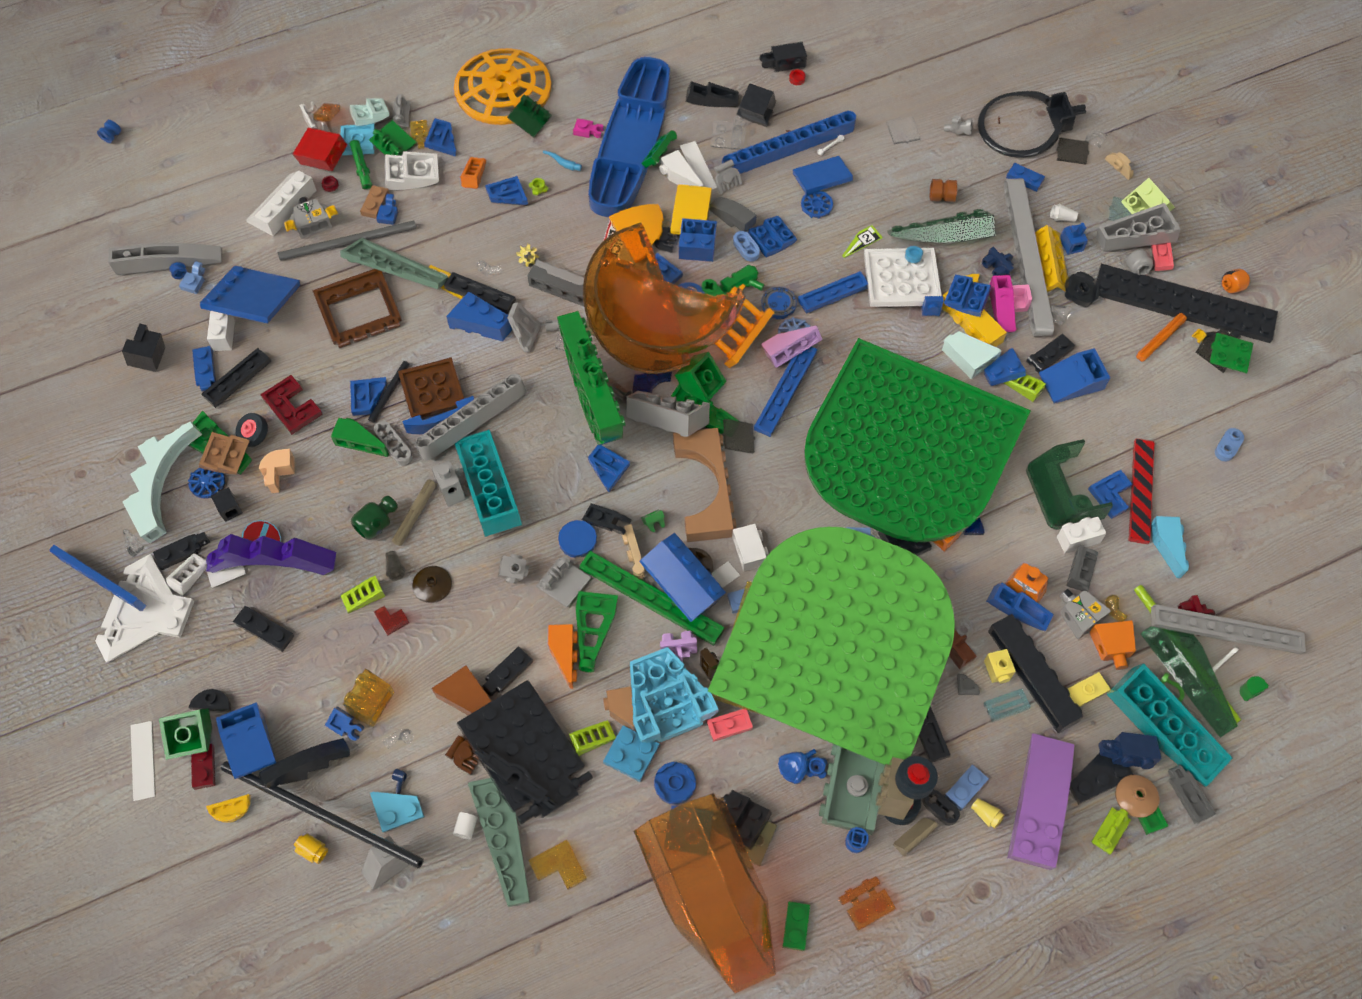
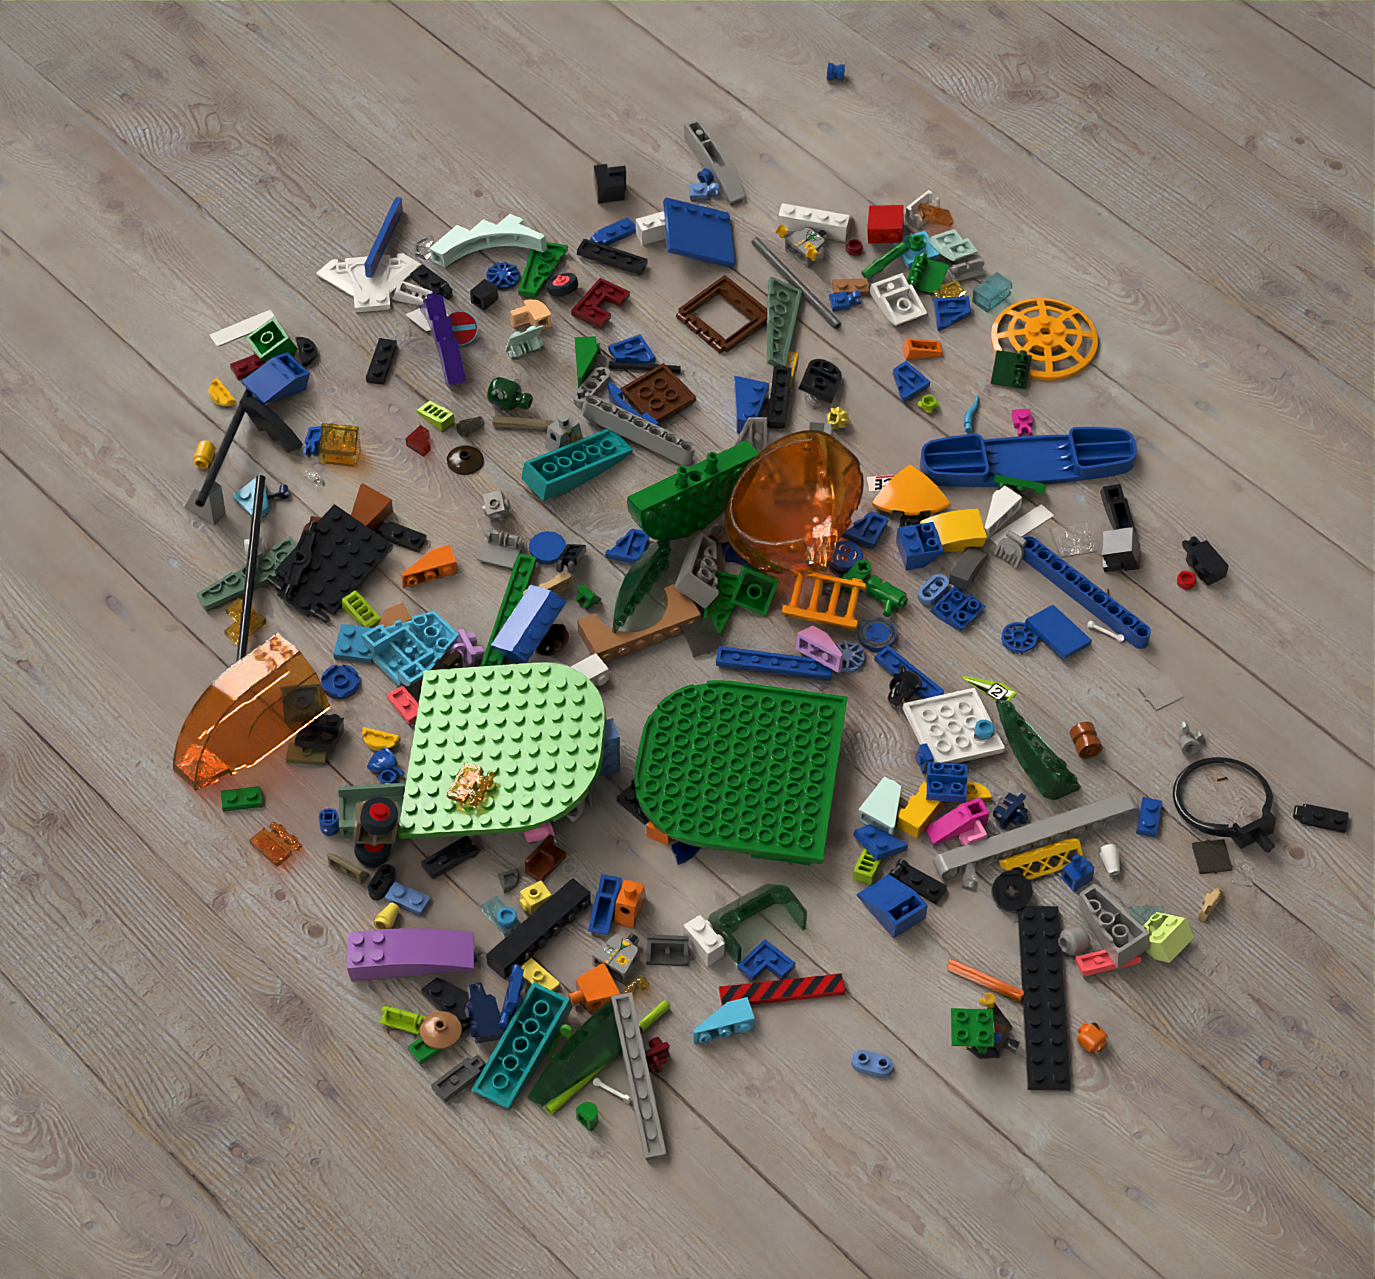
camera: 70 degrees right, 10 degrees down
(223, 453) = (529, 273): medium nougat slope -> none
(311, 481) = (528, 338): none -> light aqua hinge
(354, 133) = (916, 242): none -> green plate
(435, 101) = (992, 292): none -> clear light blue brick
(478, 253) = (819, 381): none -> black tile
(504, 836) = (251, 567): none -> black piece
(599, 605) = (485, 575): green plate -> none
(661, 467) = (640, 579): none -> clear green wedge
(765, 762) = (379, 740): none -> yellow plate
(851, 299) = (903, 685): none -> black hair
(882, 685) = (465, 782): none -> clear orange plate
(1017, 698) = (506, 917): none -> dark azure tile
(1054, 72) = (1321, 817): none -> black hinge
(1118, 716) = (512, 995): none -> blue plate

